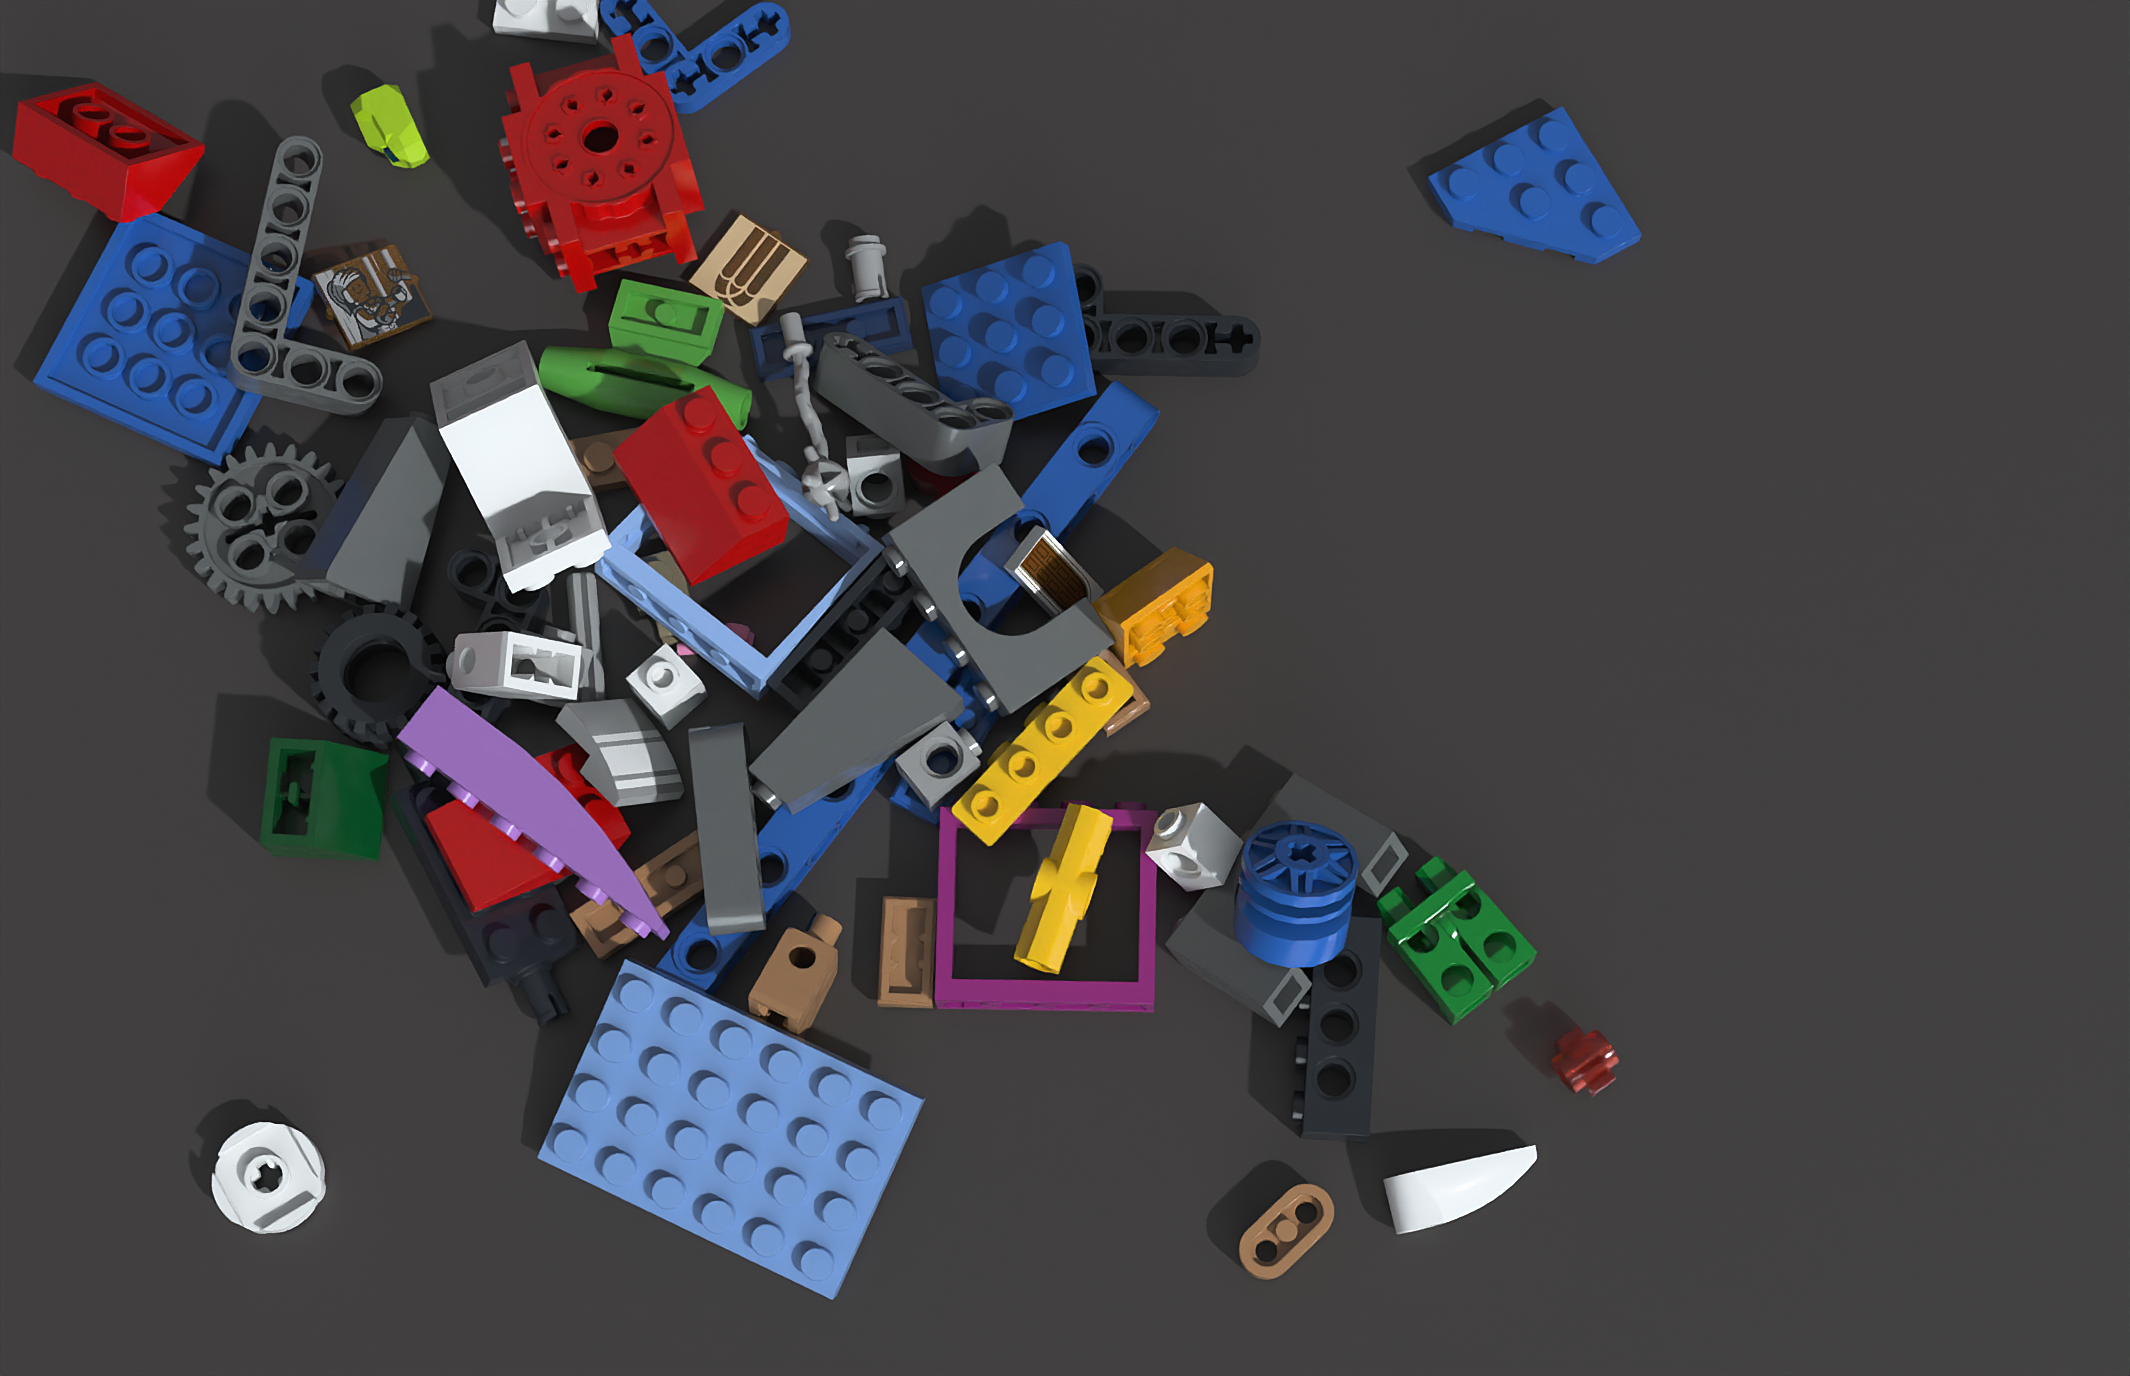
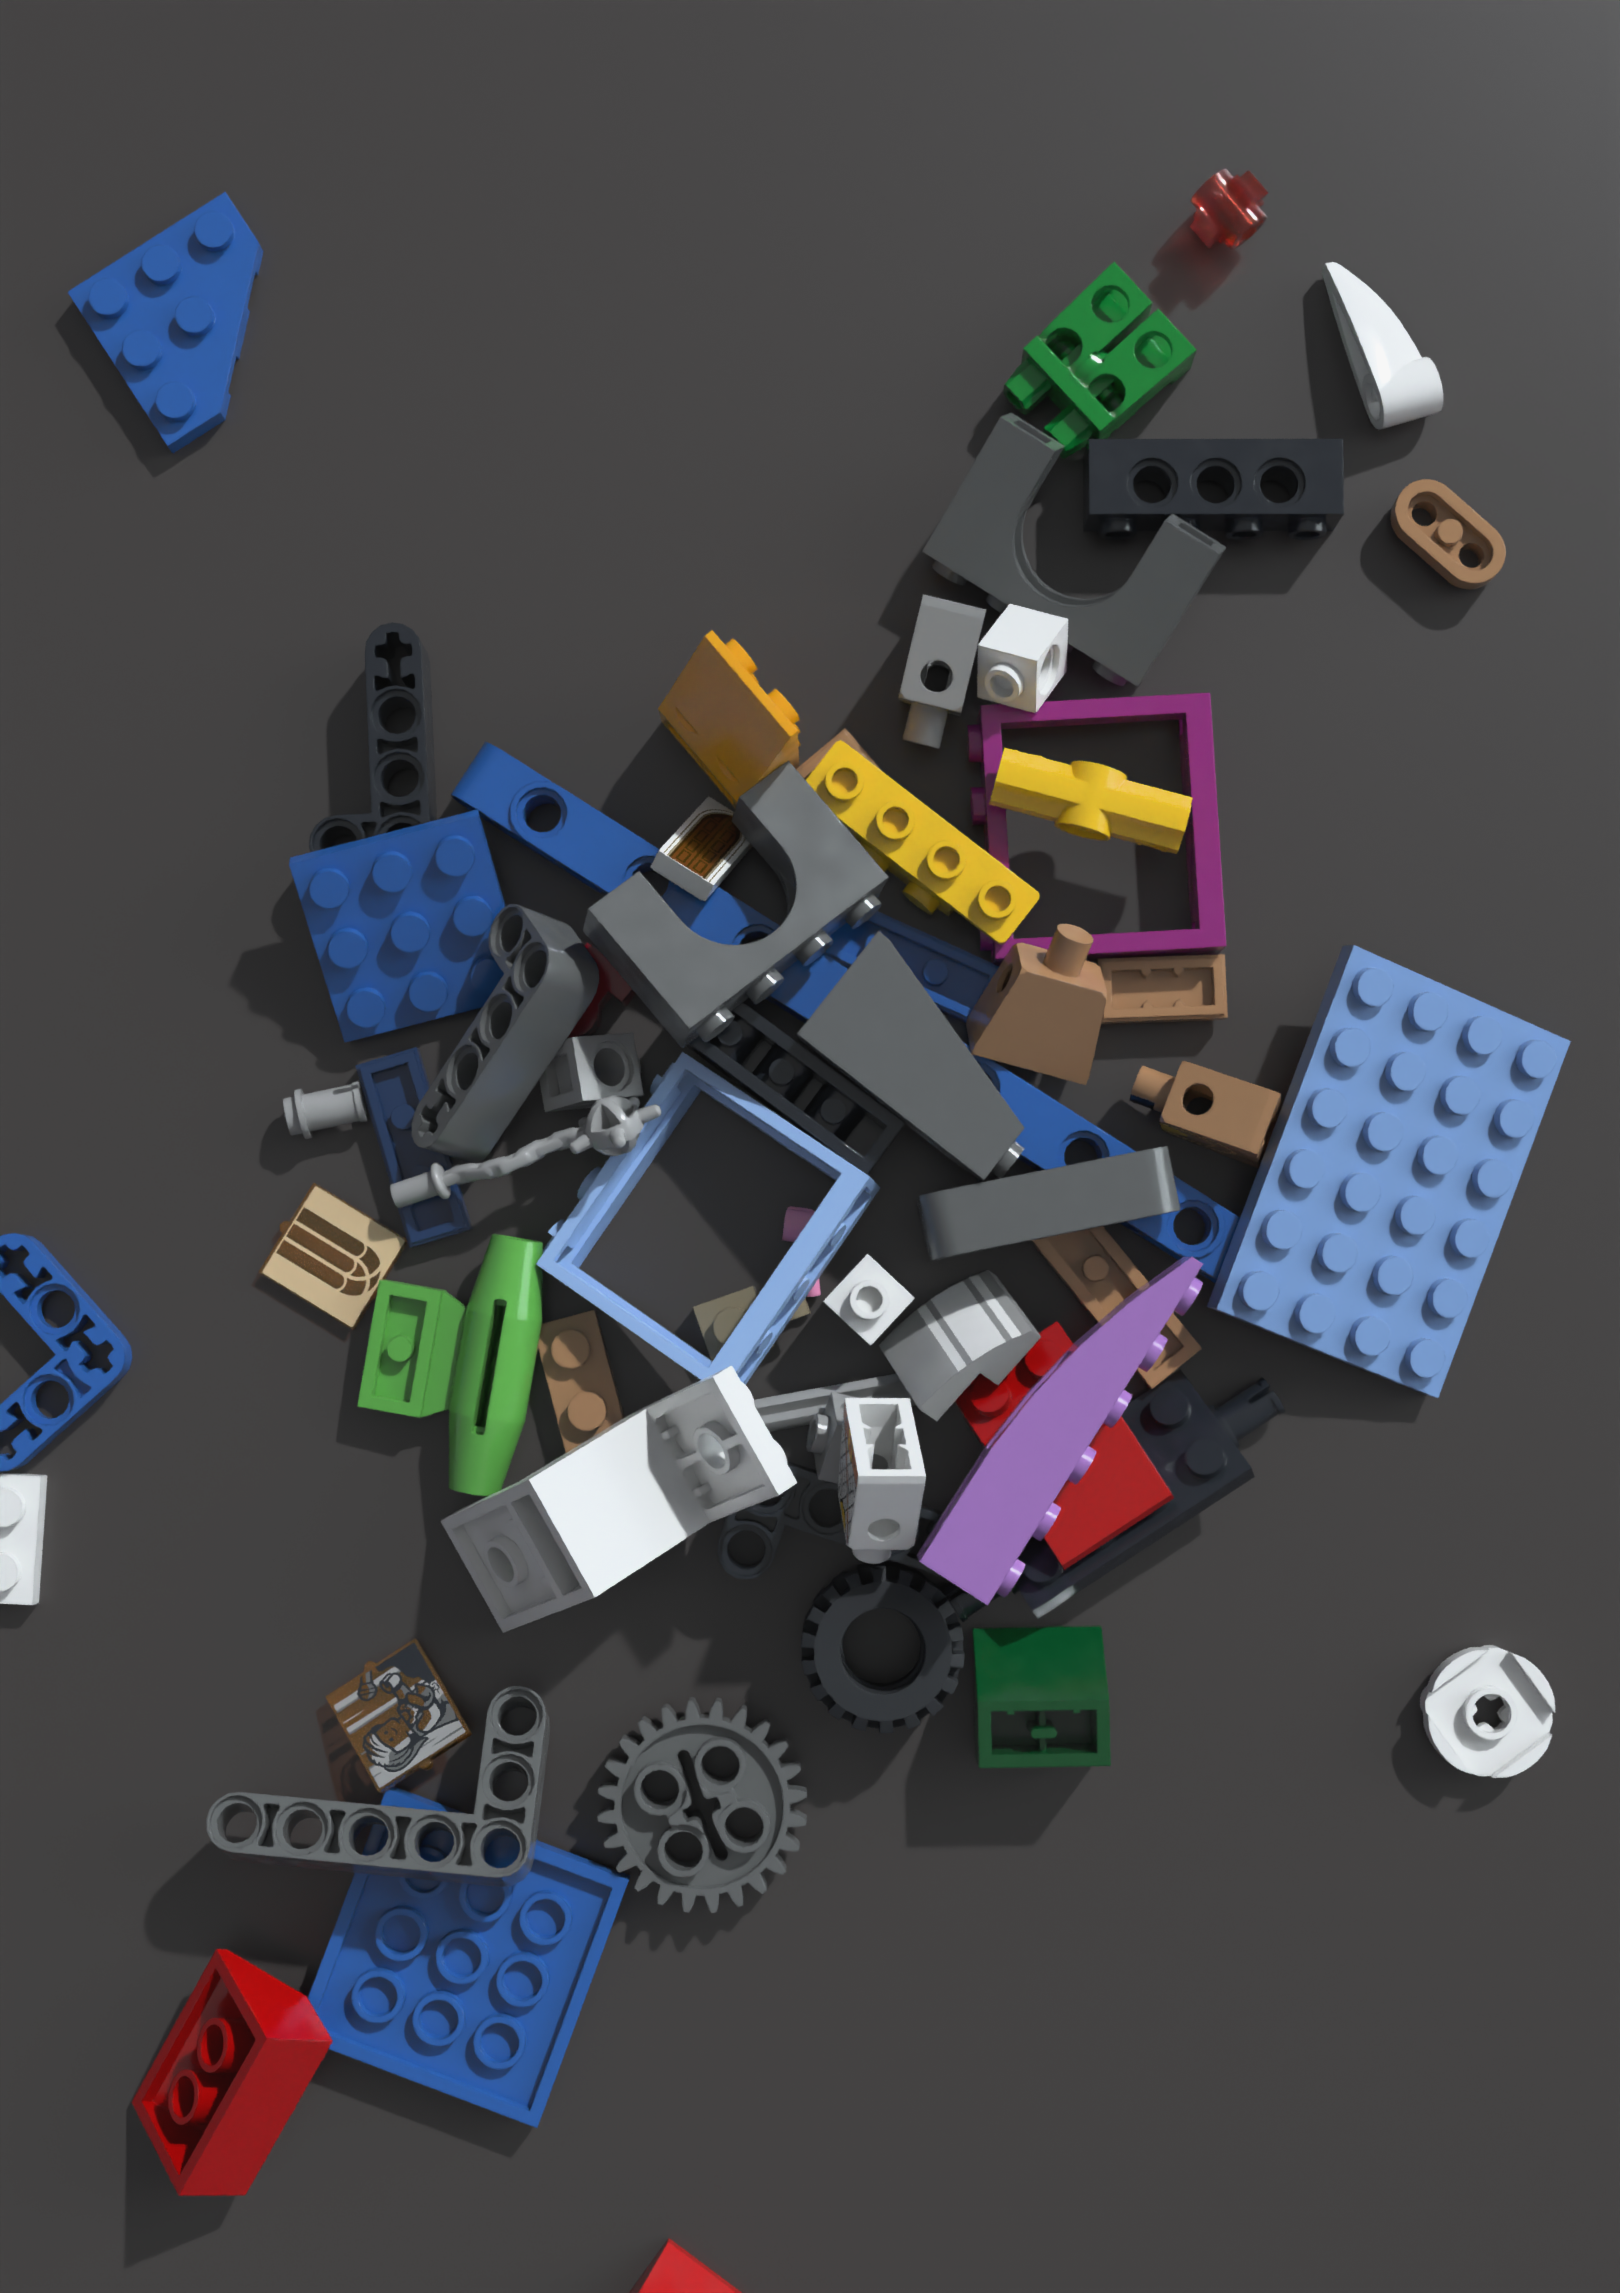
camera: 95 degrees left, 10 degrees up
(383, 518) = (686, 1666): dark grey slope -> none
(390, 126) = (176, 1717): lime rock -> none
(599, 164) = (175, 1452): red piece -> none
(701, 486) = (633, 1272): red slope -> none
(893, 841) = (1043, 1008): none -> medium nougat torso
(933, 787) = (974, 966): light grey brick -> none
(1211, 776) = (946, 638): none -> light grey torso
(1295, 893) = (1085, 522): blue wheel -> none

